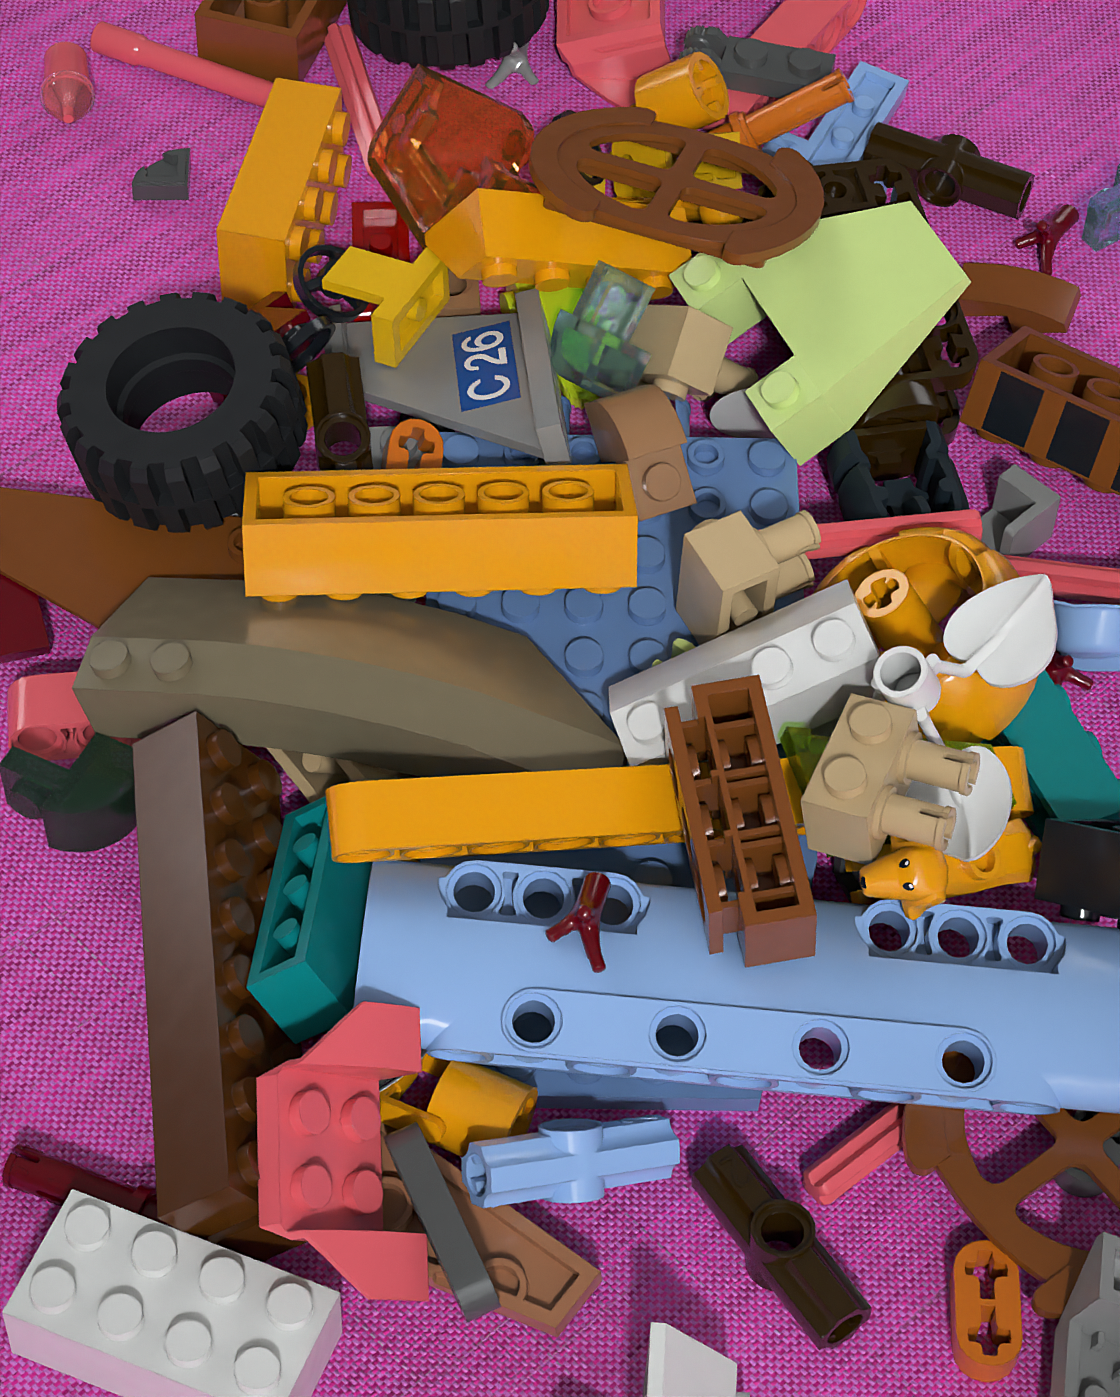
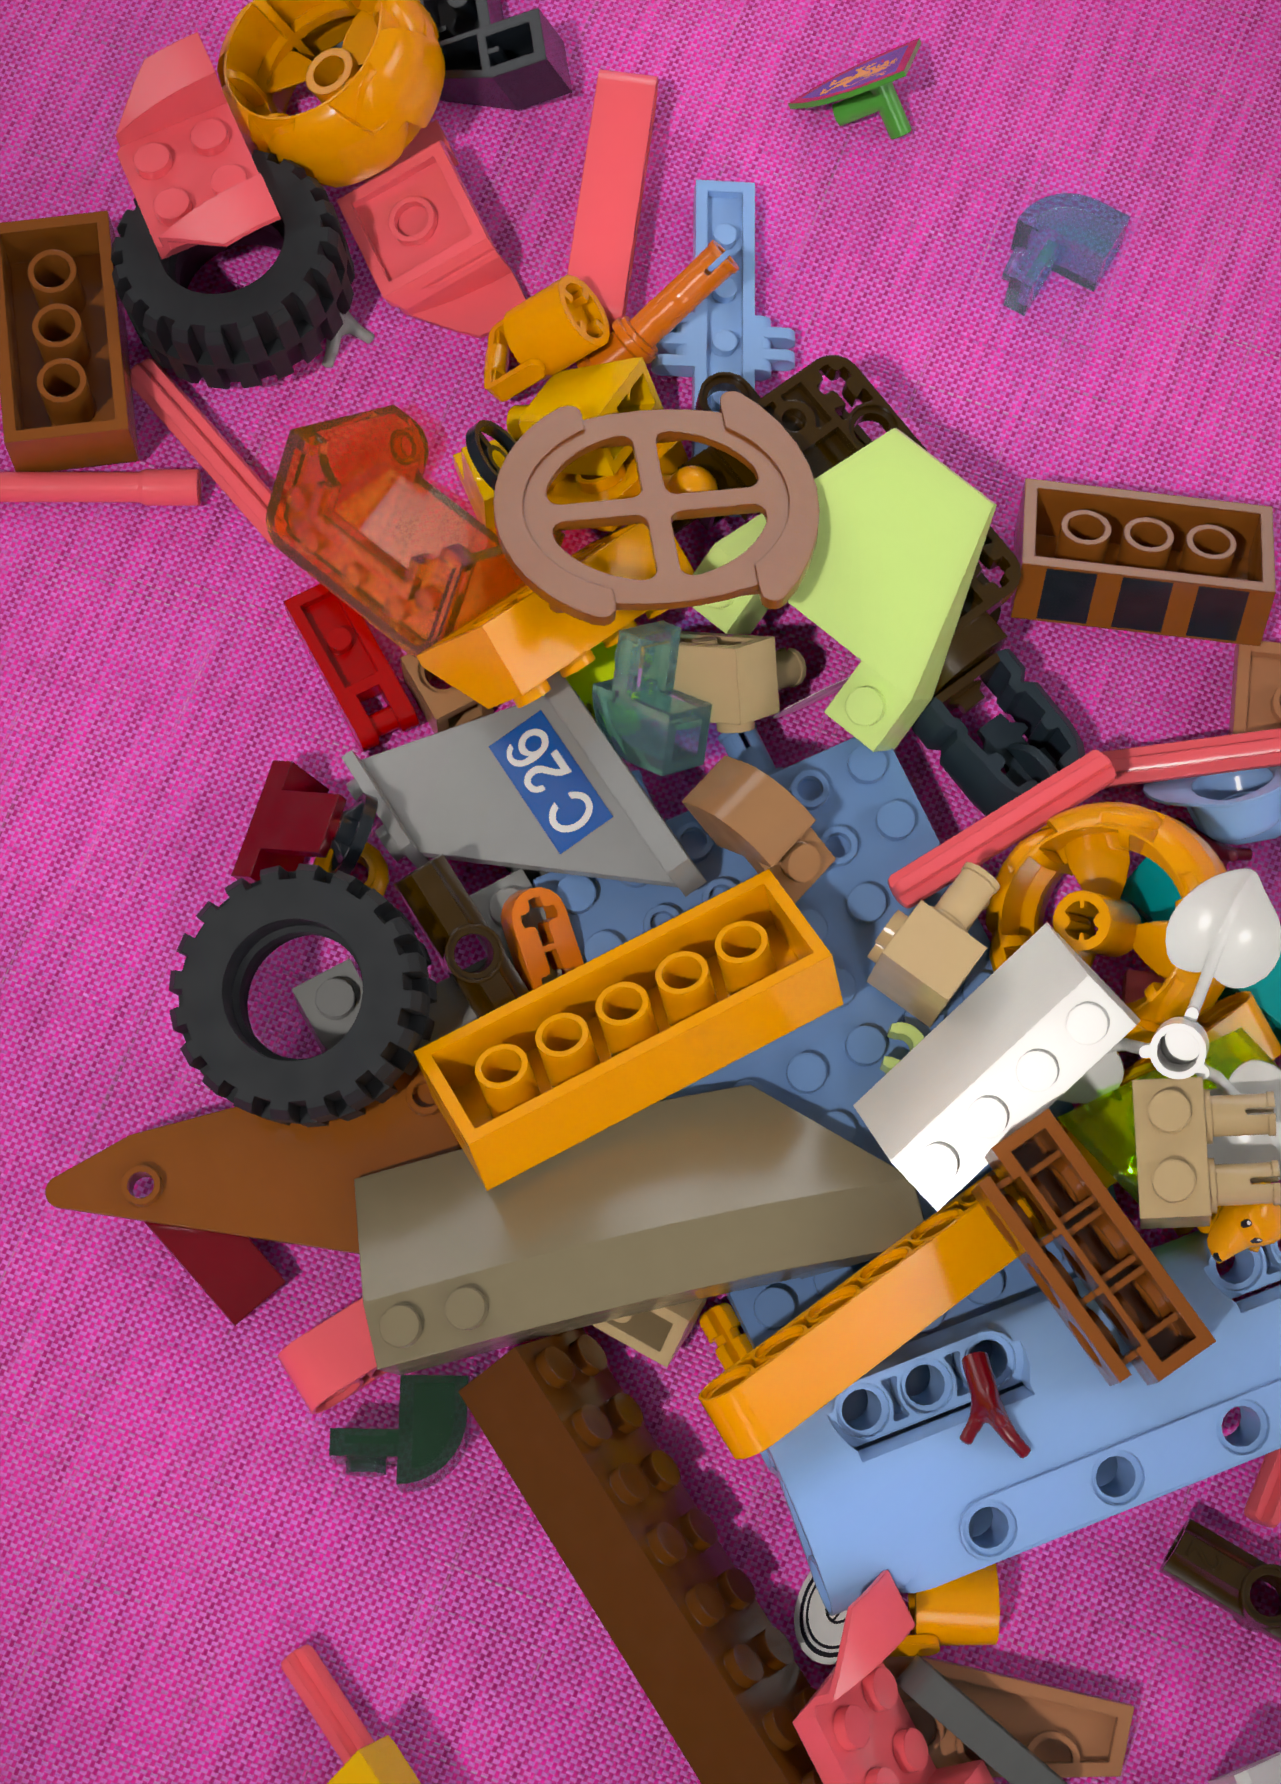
camera: 25 degrees left, 20 degrees up
(165, 178) = (66, 642): dark grey tile -> none
(284, 191) = (225, 639): light orange brick -> none
(309, 929) = (723, 1502): teal brick -> none
(406, 294) = (391, 732): yellow piece -> none
(569, 1160) = (1059, 1615): light blue piece -> none
(759, 65) = (612, 247): dark grey hinge -> none
(952, 170) = (846, 285): dark brown piece -> none
(1020, 514) = (1104, 700): light grey panel -> none
(1021, 295) = (982, 417): dark orange slope -> none
(1048, 235) = (976, 320): dark red bar -> none
(1049, 63) = (867, 90): none -> shield

